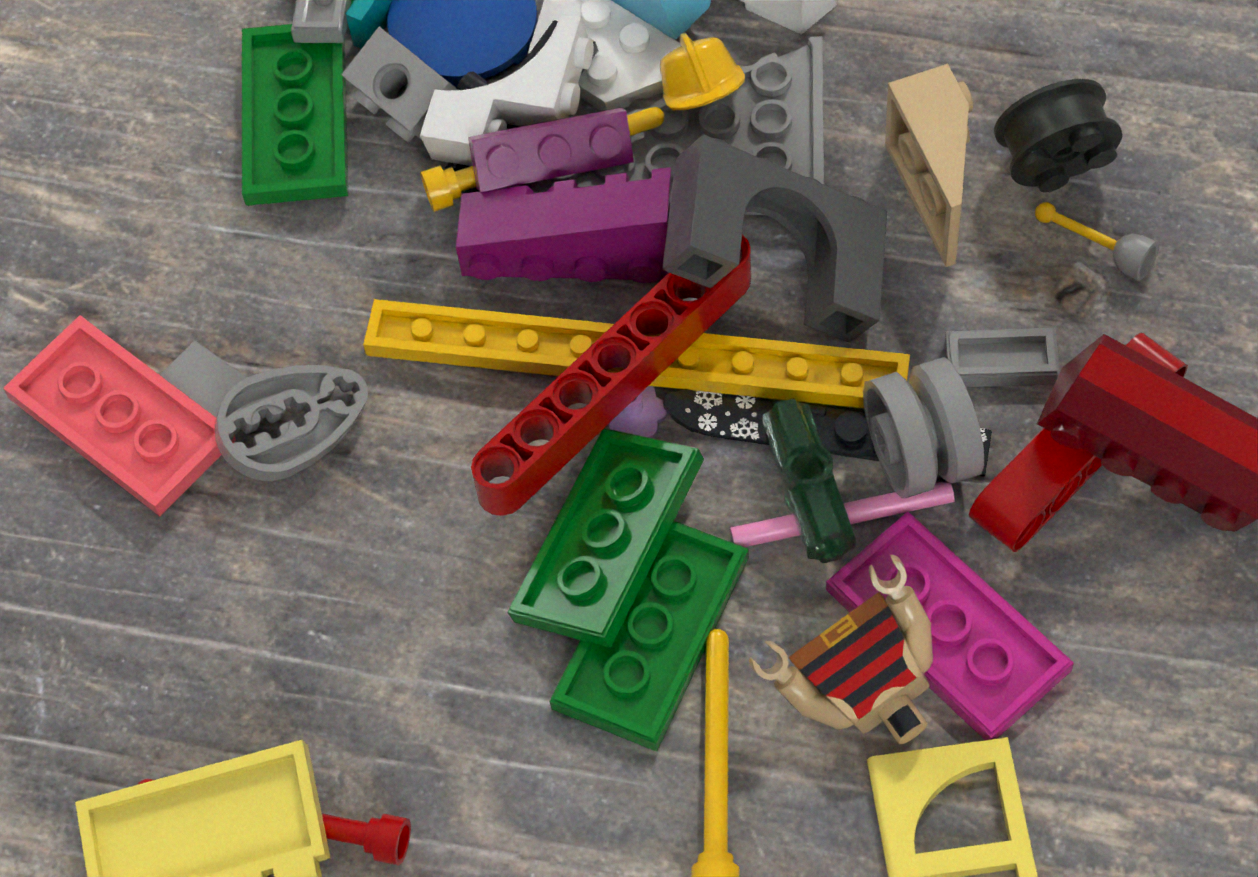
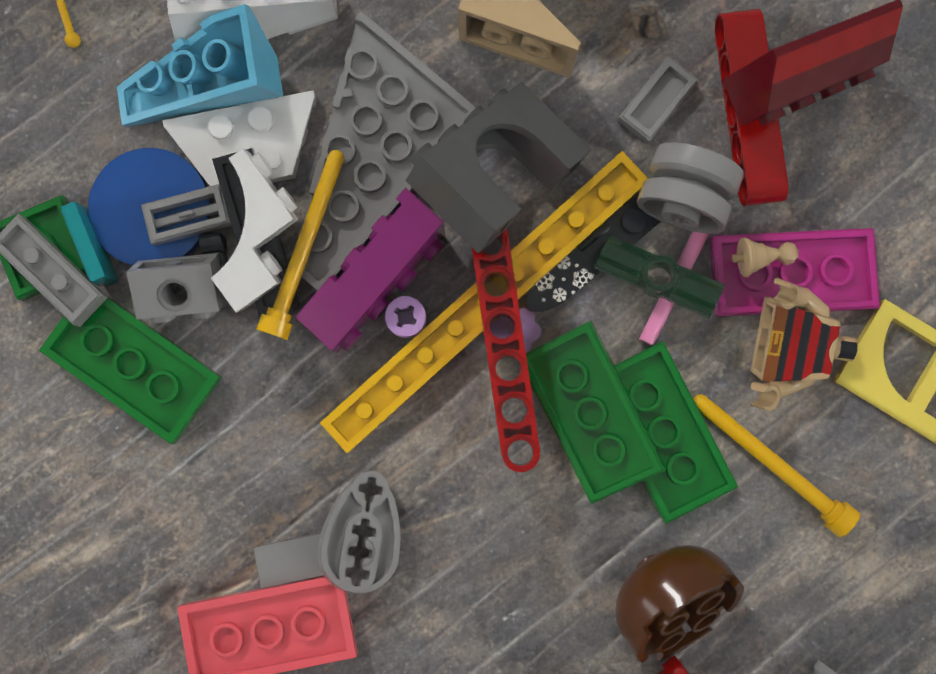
camera: 55 degrees left, 25 degrees up
(469, 730) = (670, 590): none -> reddish brown cylinder
(475, 52) = (188, 230): none -> light grey tile
(549, 281) = (408, 326): none -> lavender wheel
(551, 149) = (314, 241): magenta plate -> none
(698, 73) = (336, 108): yellow piece -> none
(923, 559) = (755, 256): none -> tan piece

